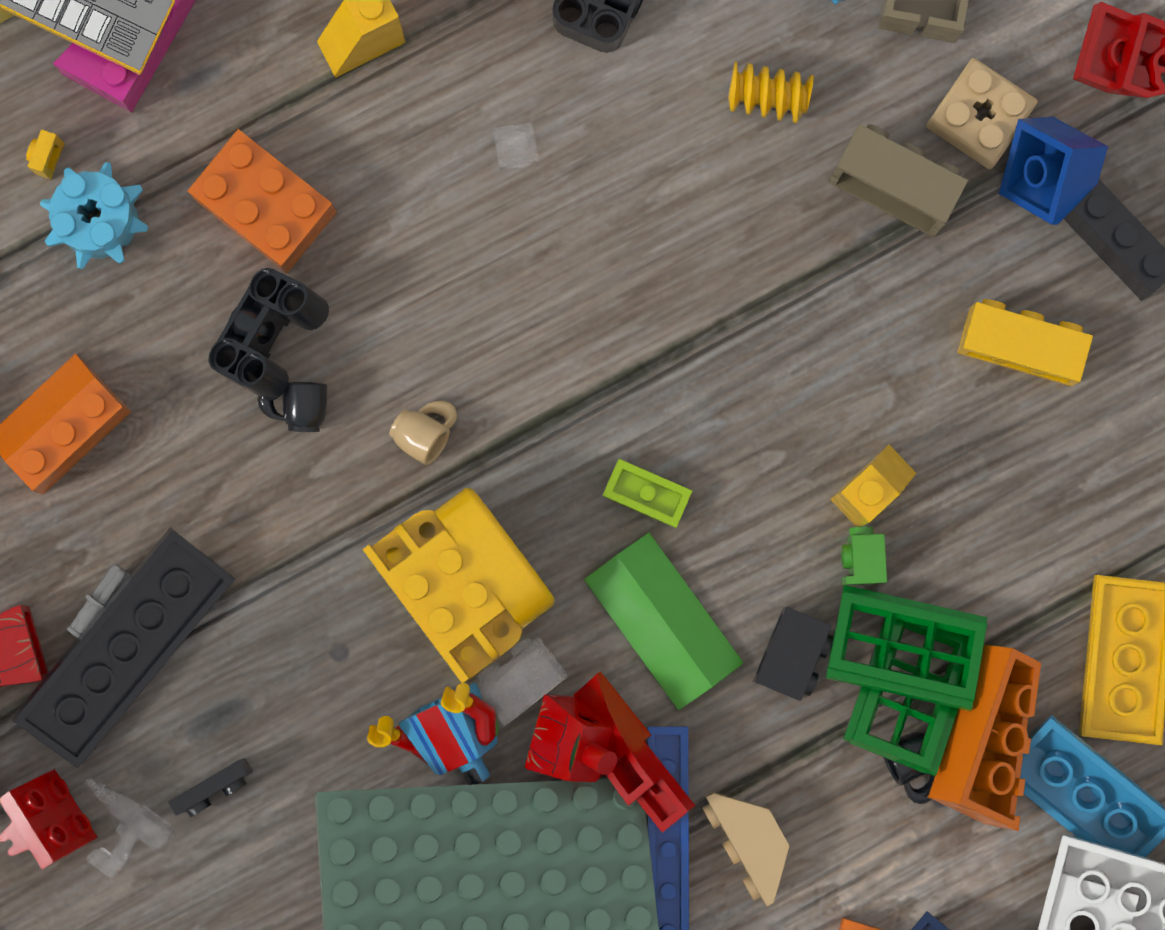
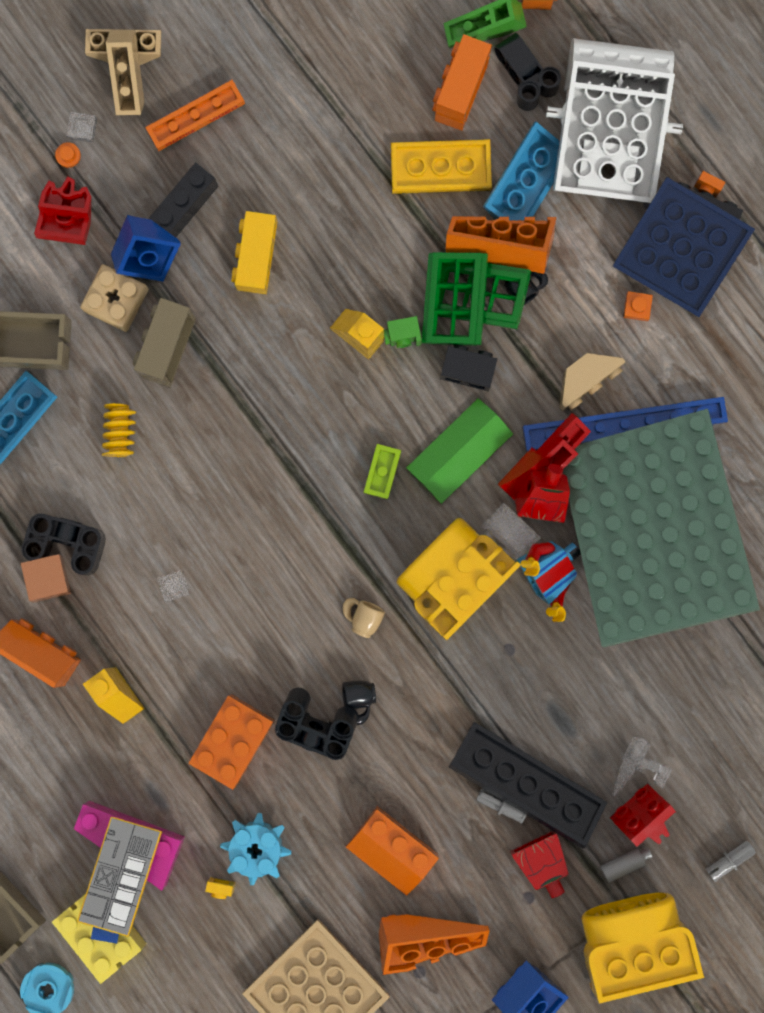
camera: 90 degrees left, 0 degrees up
(226, 780) = (613, 723): black plate -> none

